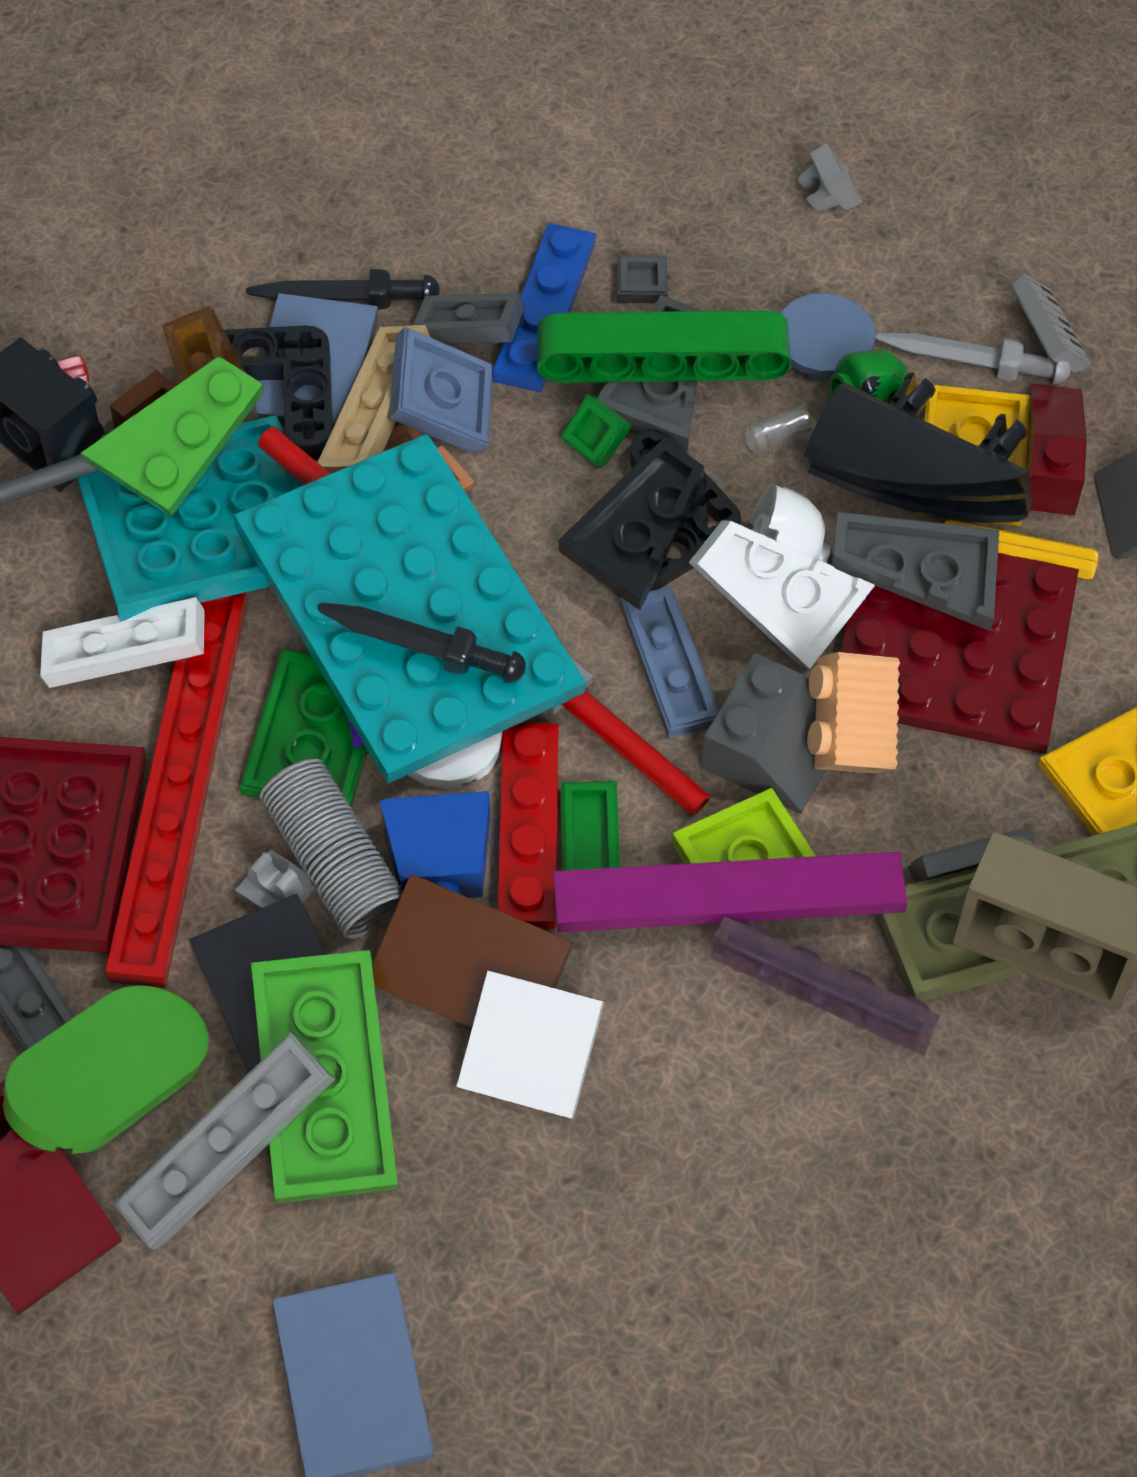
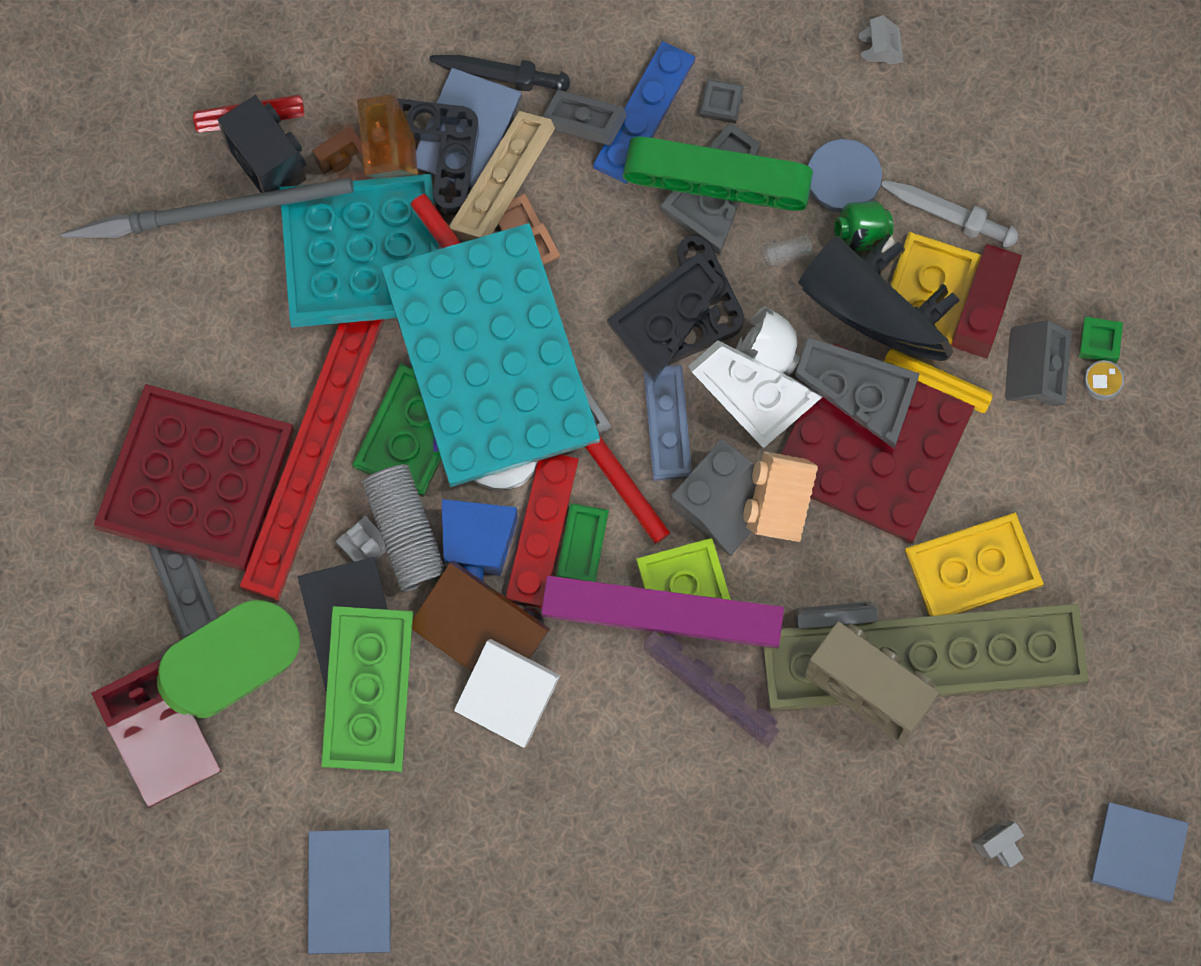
camera: 15 degrees right, 15 degrees up
(118, 646) = (282, 344): white plate -> none
(178, 435) = (353, 193): bright green wing -> none
(223, 1141) = (295, 722): light grey tile -> none
(441, 391) = (551, 177): sand blue tile -> none
(457, 649) = (513, 404): black sword -> none
(595, 430) = (656, 228): green tile -> none
(1050, 323) = (1012, 198): light grey tile -> none

